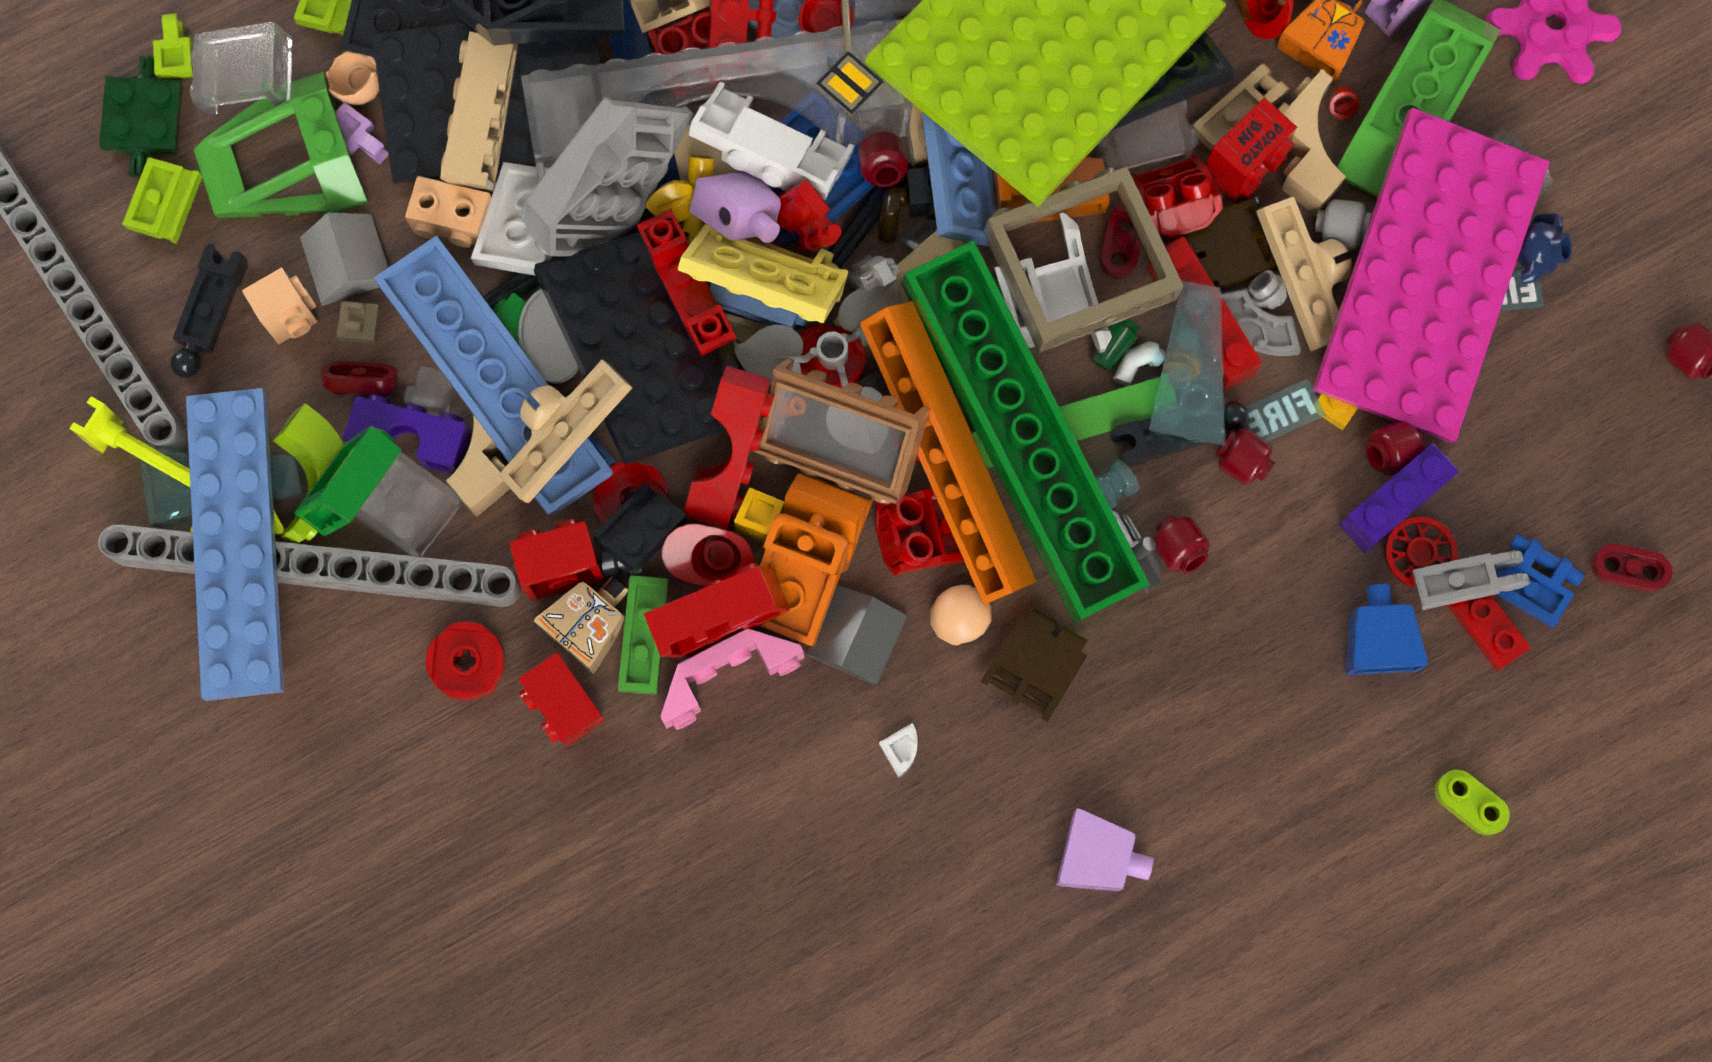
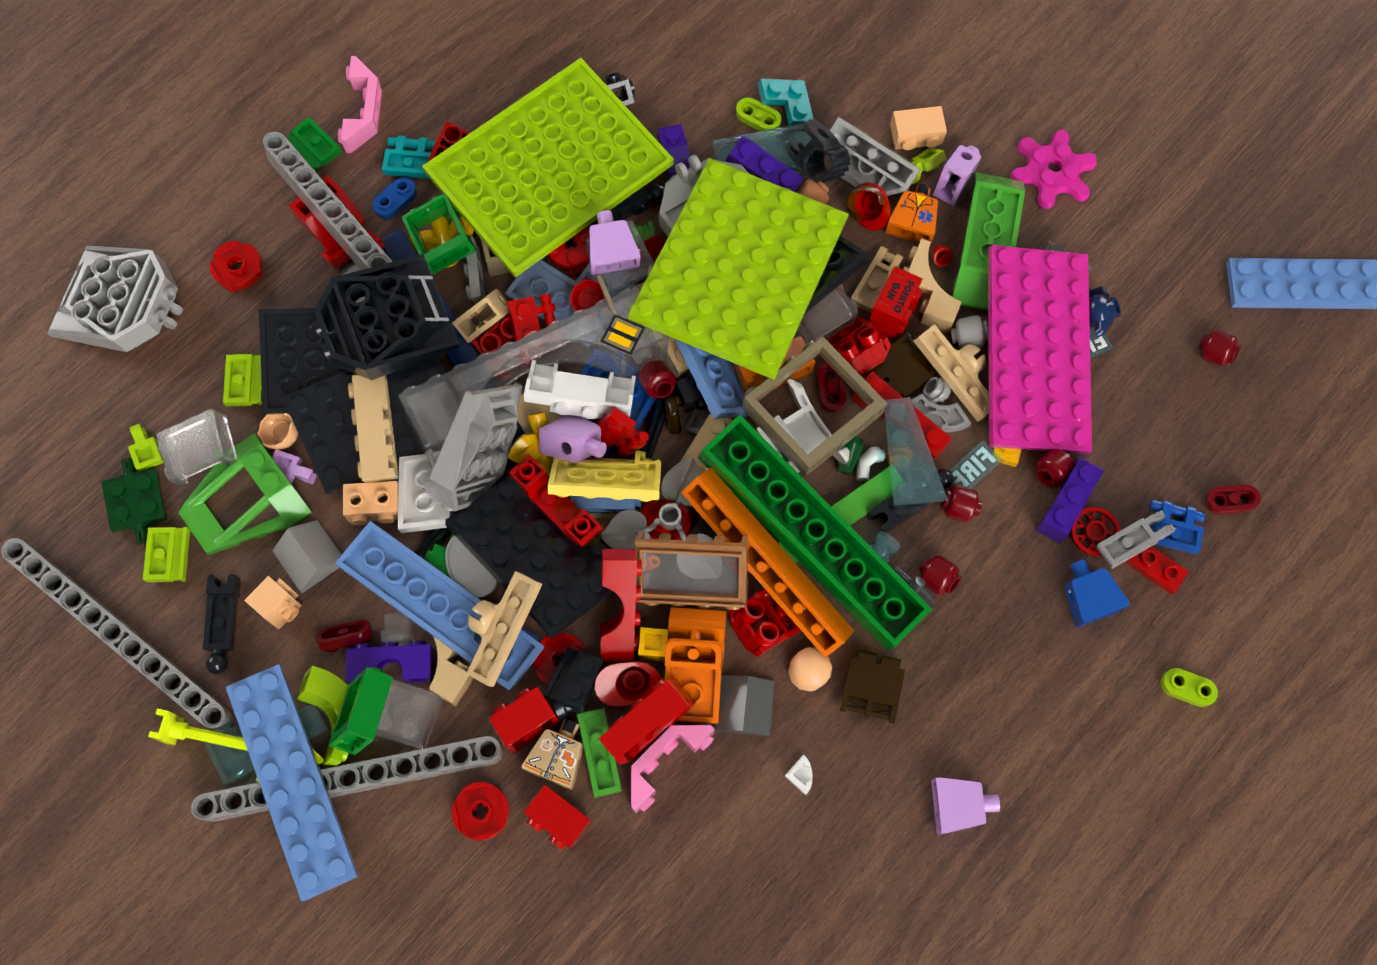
camera: 20 degrees left, 5 degrees down
(358, 322) = (331, 597): dark tan tile -> none
(871, 272) = (675, 456): light grey hinge -> none

